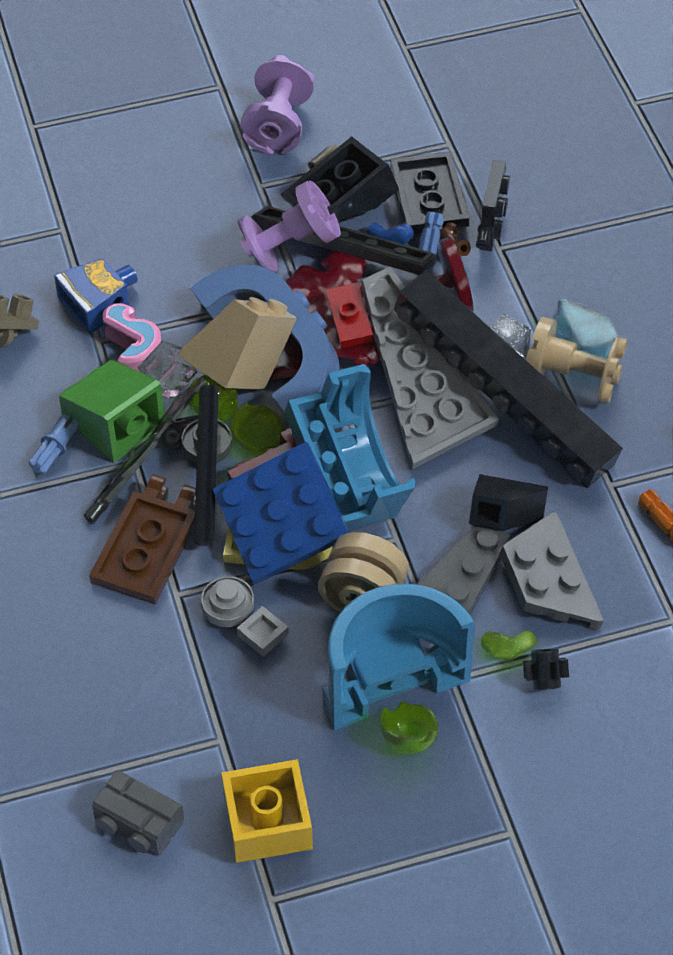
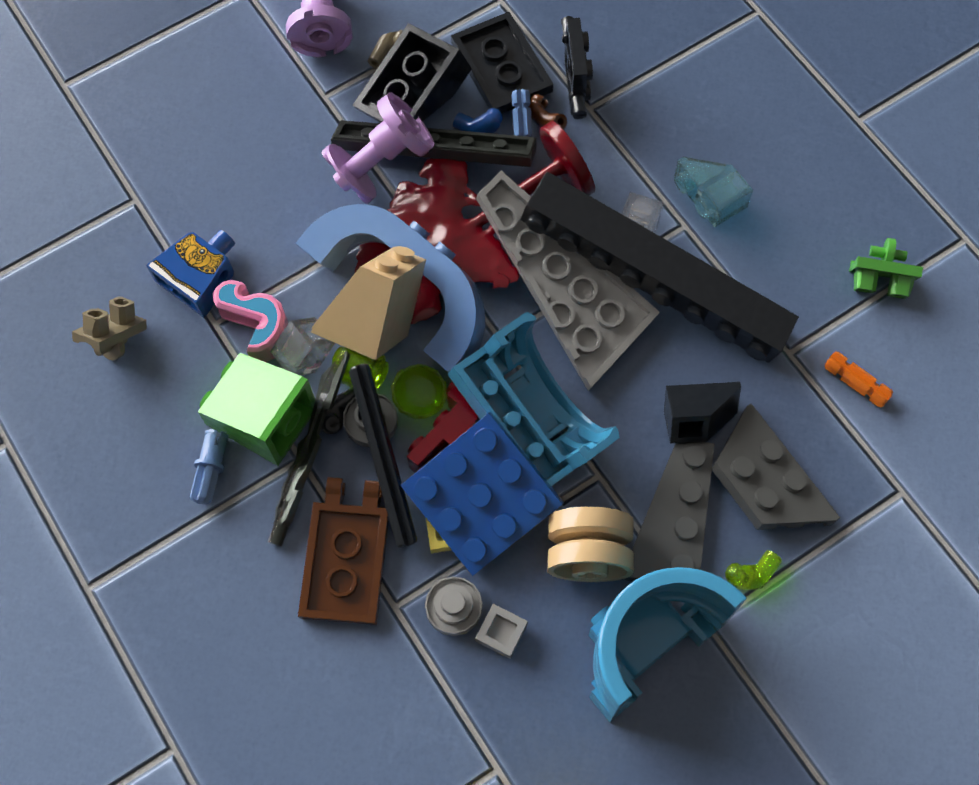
camera: 15 degrees left, 15 degrees up
(349, 315) = (473, 234): red plate -> none
(409, 728) = (691, 706): clear neon green hair -> none
(546, 669) = (805, 594): black gear -> none
(562, 356) = (703, 224): tan piece -> none

